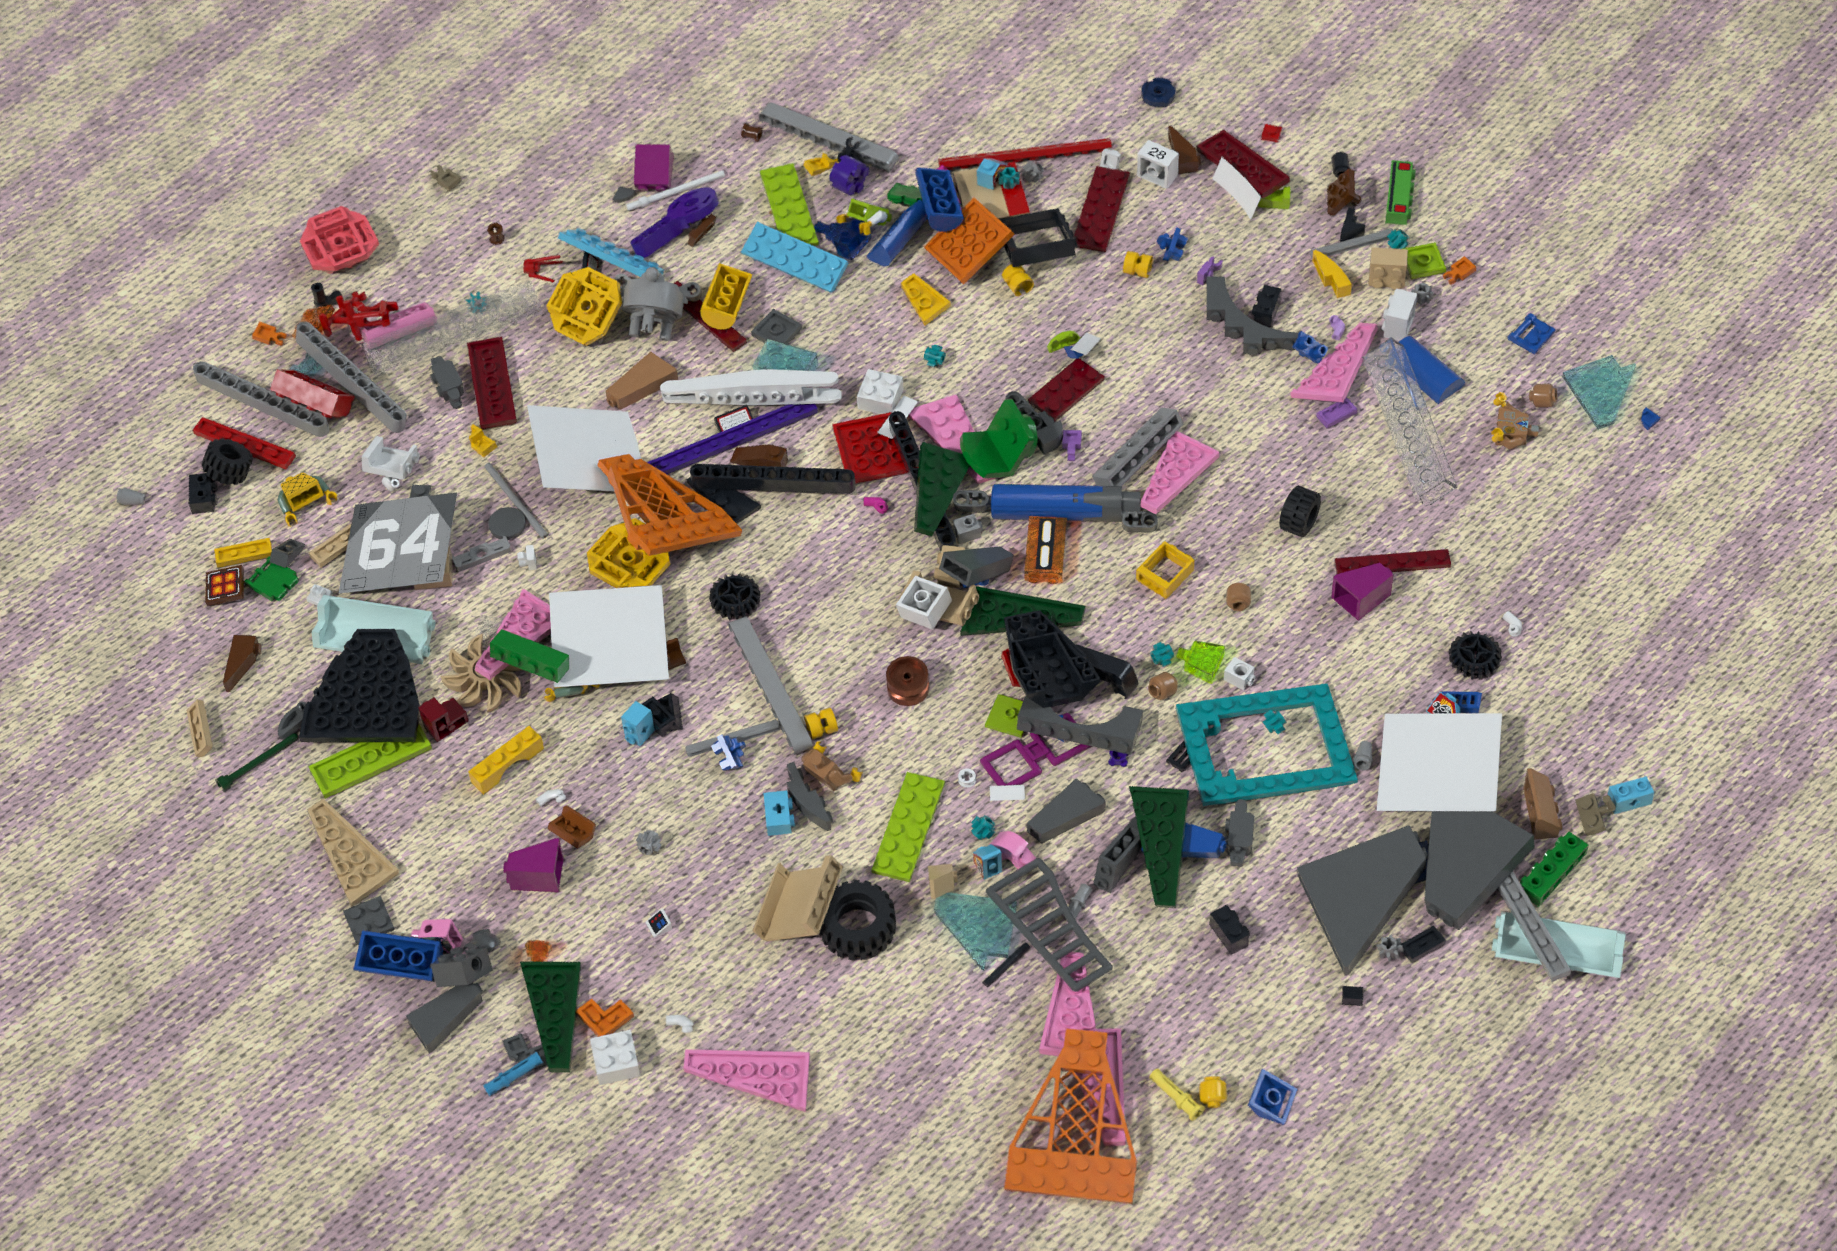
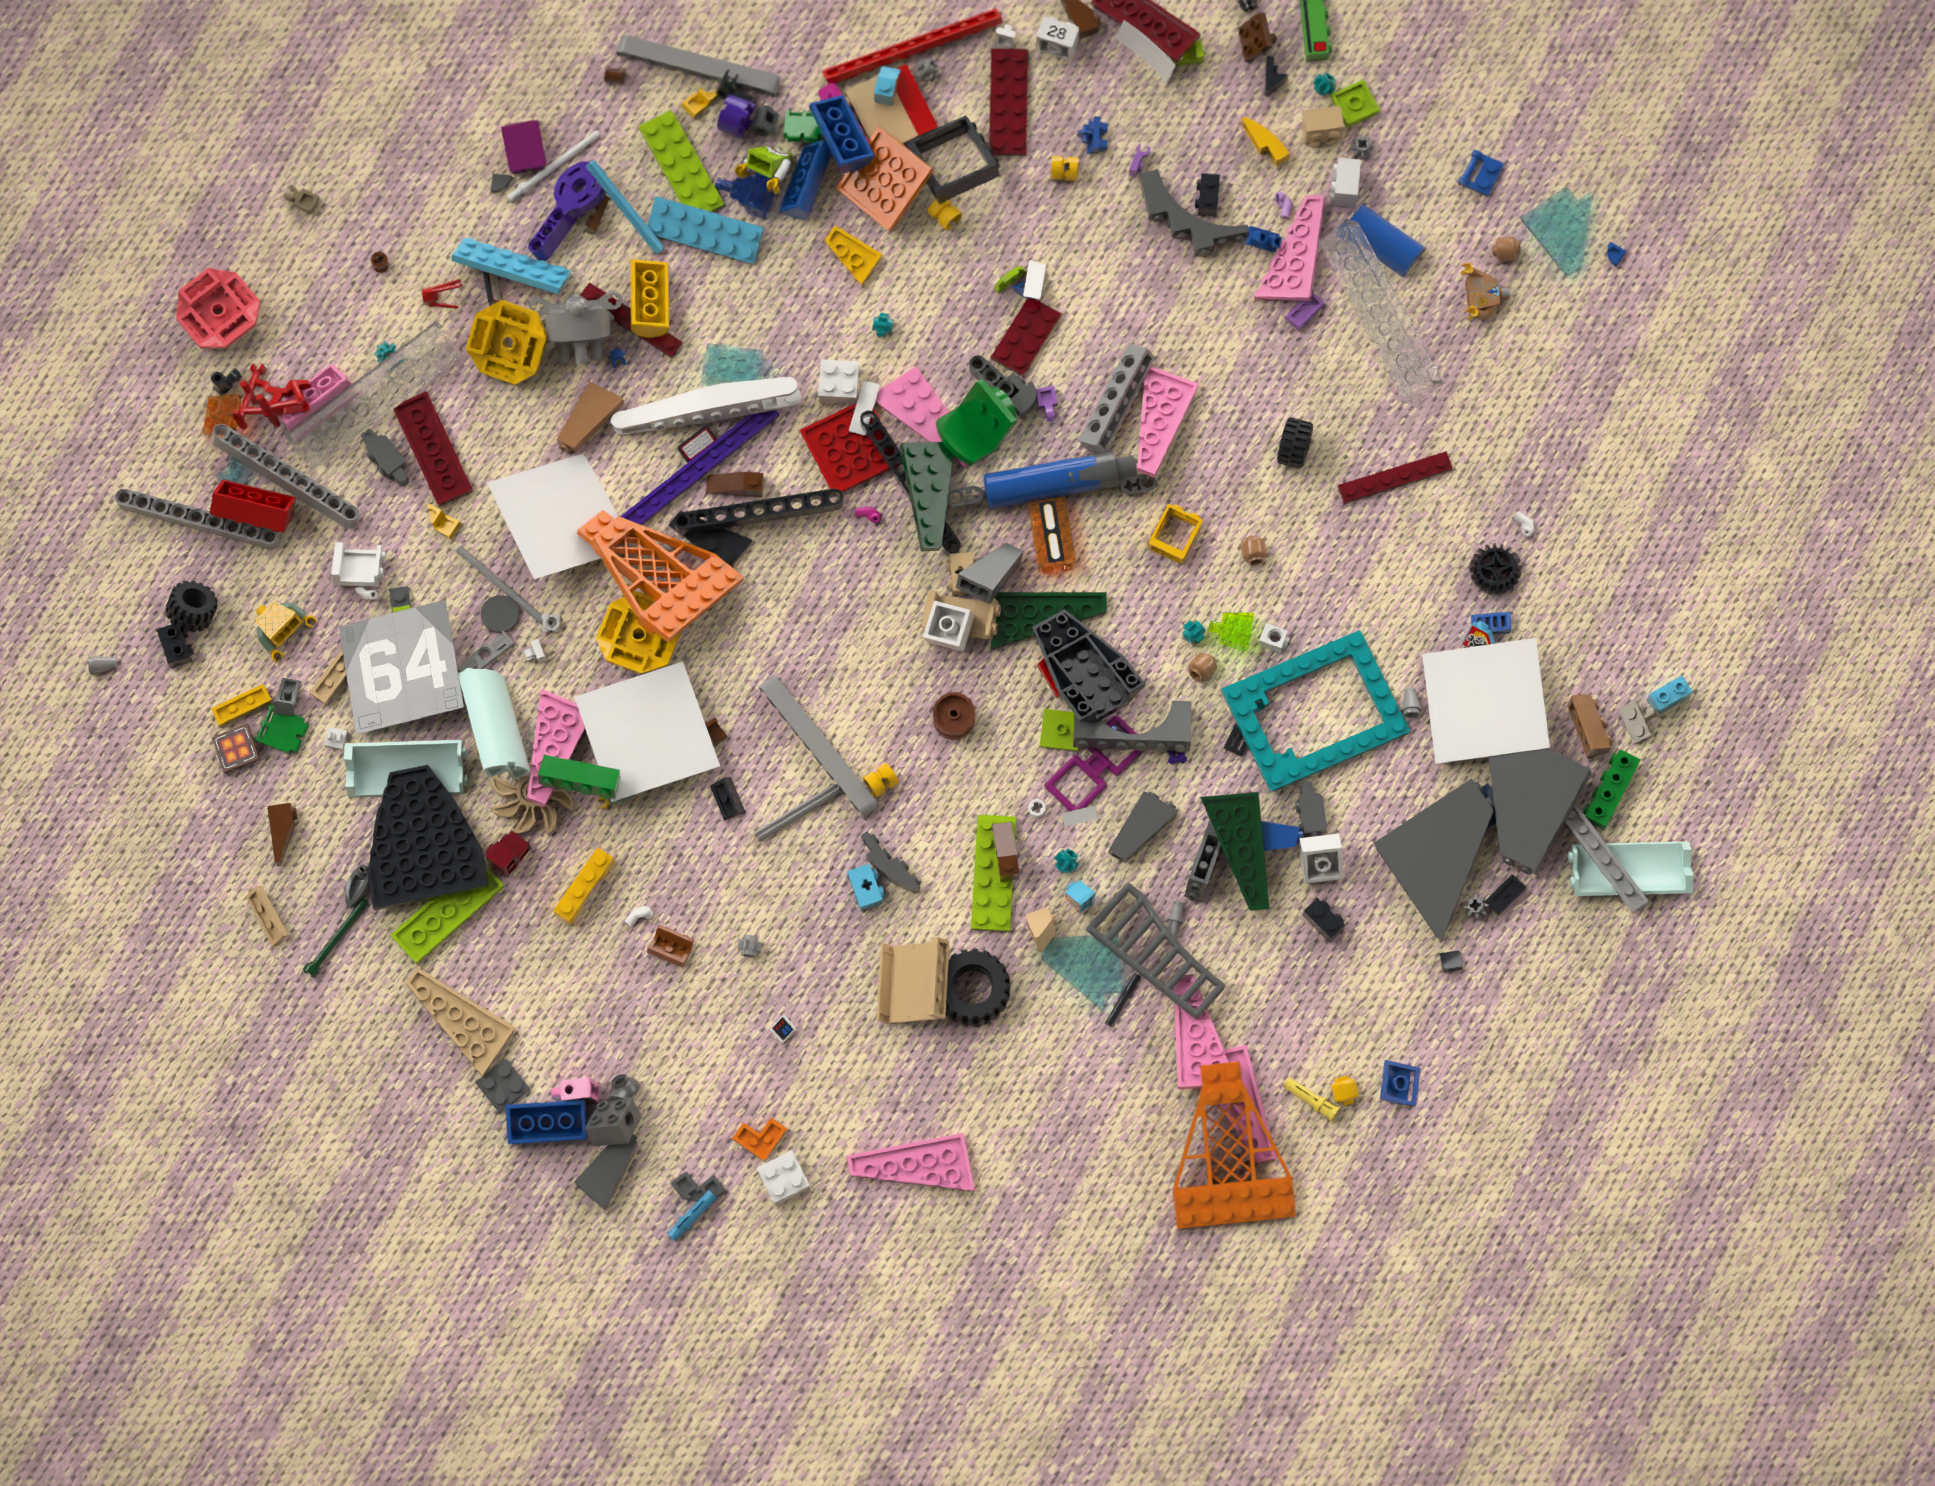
camera: 15 degrees left, 20 degrees up
(258, 448) = (210, 577): red plate -> none
(267, 333) = (174, 436): orange plate -> none
(466, 601) = (494, 723): none -> light aqua cylinder
(535, 867) = (650, 1000): magenta slope -> none
(538, 949) = (676, 1082): clear orange cone -> none
(550, 533) = (555, 623): none -> white plate
(554, 1000) = (707, 1130): dark green wing -> none
(637, 724) = (703, 822): medium azure brick -> none
(661, 716) = (717, 805): black slope -> none
(681, 1020) = (835, 1125): white arm -> none
(683, 338) = (616, 354): none -> blue plate
(726, 223) = (625, 207): none -> medium azure axle
(728, 603) = (761, 648): black gear -> none
(732, 751) = (802, 829): blue hips -> none
(776, 328) = (710, 323): dark grey plate -> none
(826, 770) = (899, 832): medium nougat torso -> none
(873, 185) = (764, 121): none -> dark grey brick
(924, 807) = (1006, 851): none -> slope
(967, 528) = (967, 526): light grey brick -> none
(1009, 178) = (907, 96): teal gear -> none
(1013, 848) = (1100, 879): bright pink brick -> none
(1113, 670) = (1147, 662): black beam -> none
(1239, 870) = (1321, 858): none -> white brick
(1274, 722) = (1320, 691): teal gear -> none
(1354, 243) = (1278, 95): light grey axle -> none
(1362, 589) = (1374, 520): magenta slope -> none
(1460, 269) = (1396, 108): orange plate -> none

